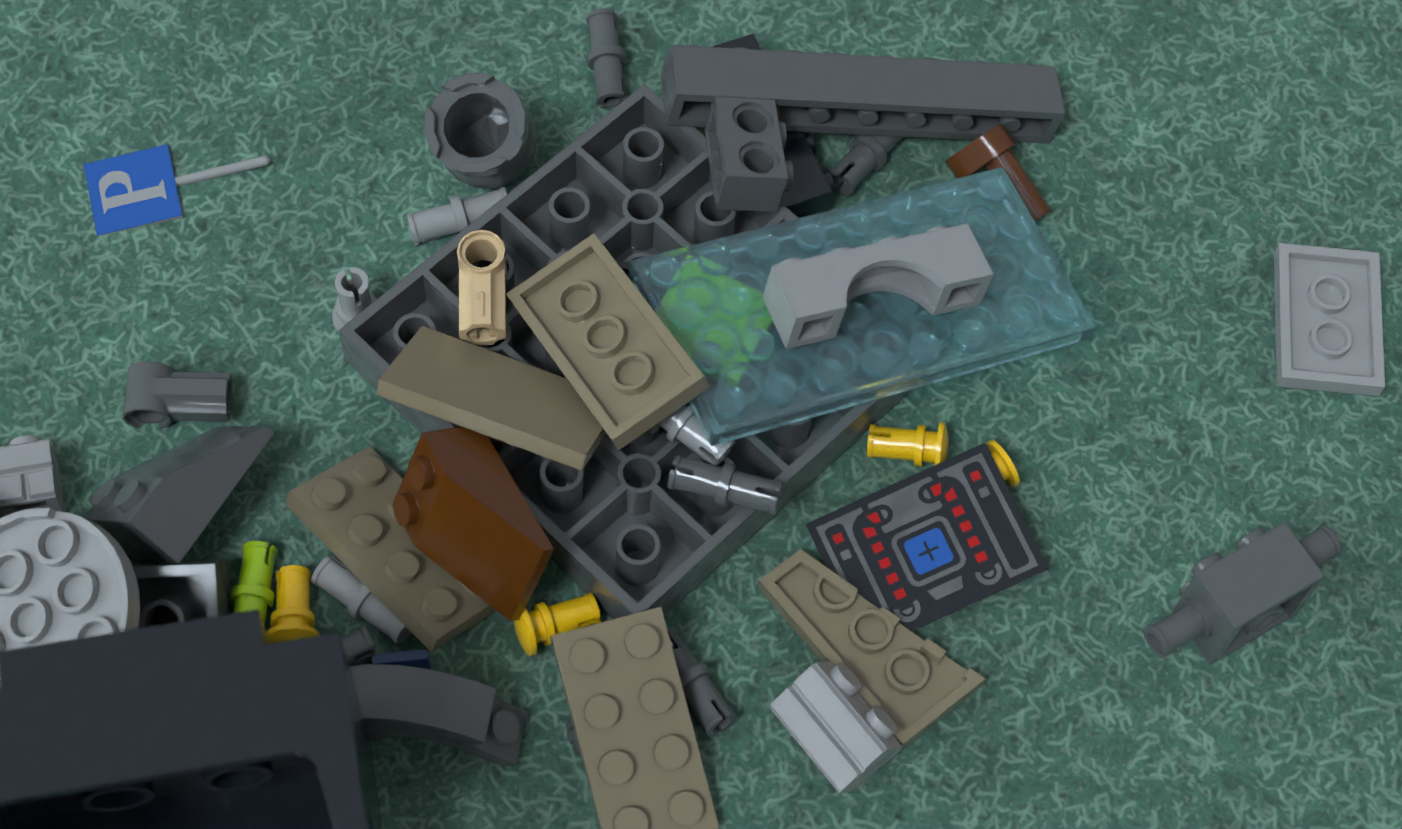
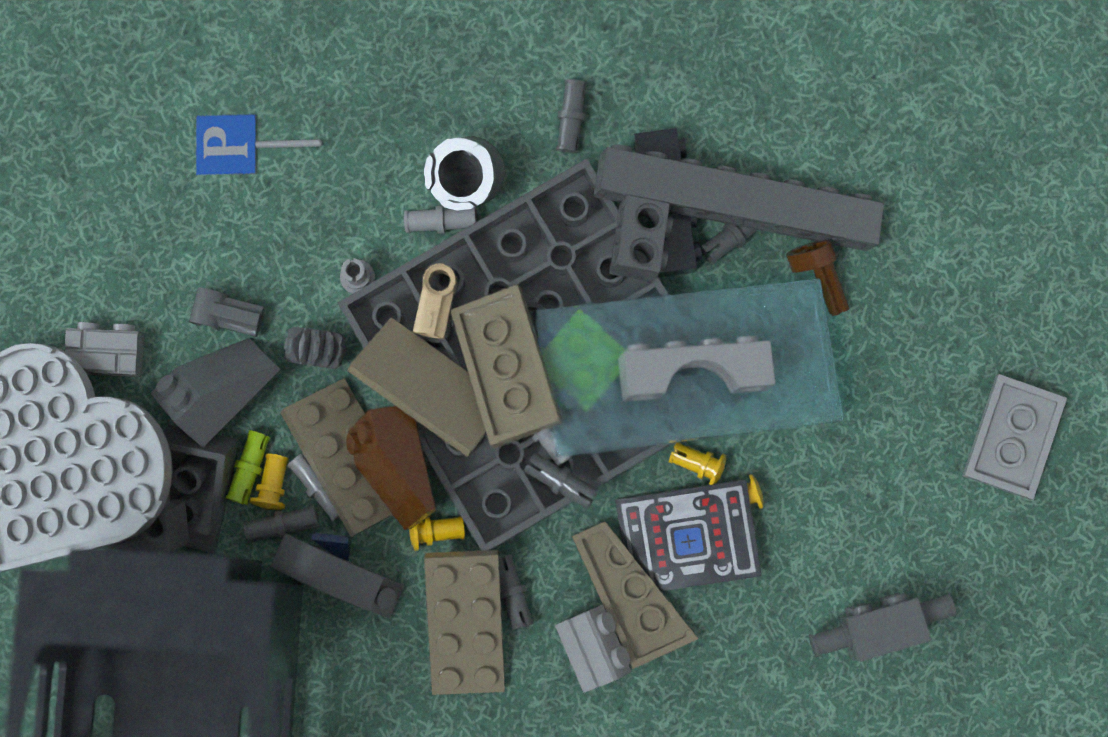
camera: 20 degrees right, 20 degrees up
(318, 406) = (315, 347): none -> dark grey gear

